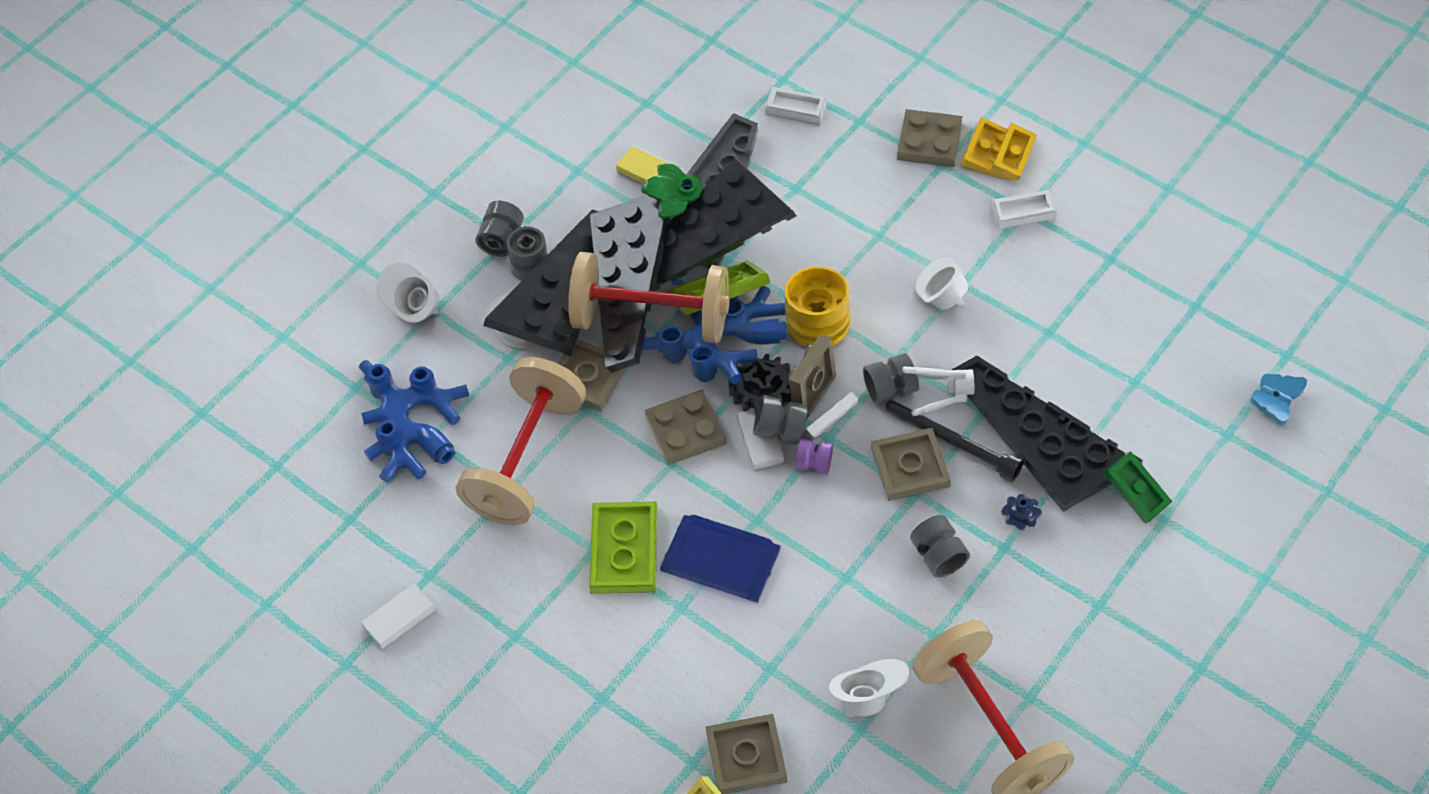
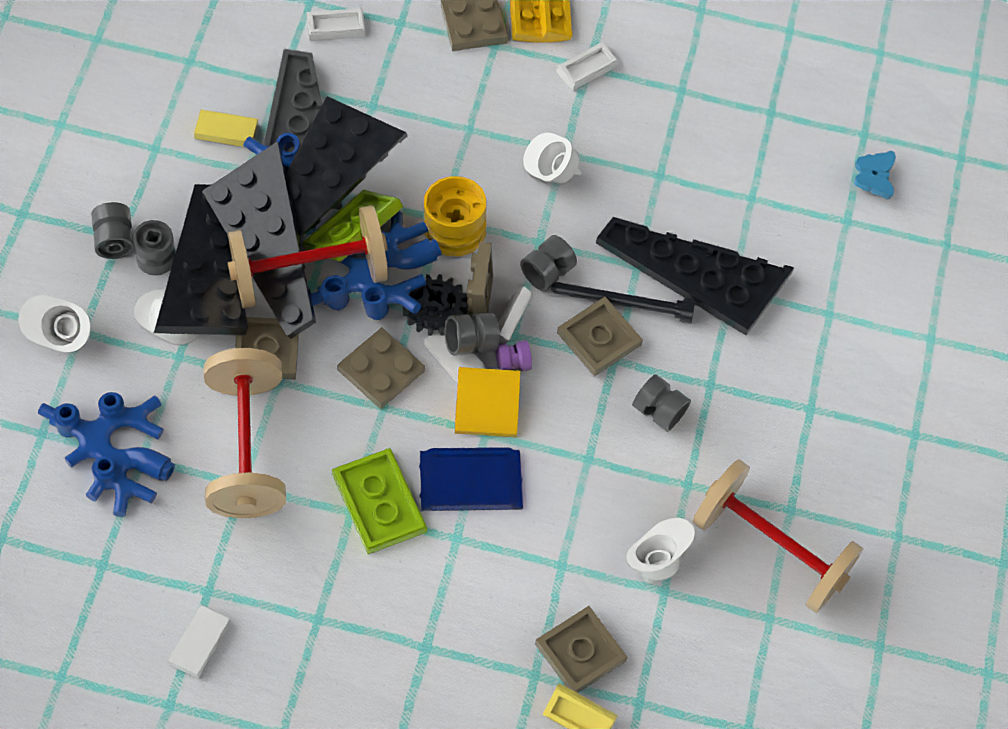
camera: 35 degrees left, 5 degrees up
(669, 190) = (276, 144): green plate -> none
(769, 490) = (487, 402): none -> yellow slope
(958, 382) = (612, 248): white plant -> none
(1021, 511) = (713, 347): dark blue plant -> none
(1138, 487) = (801, 293): green plate -> none

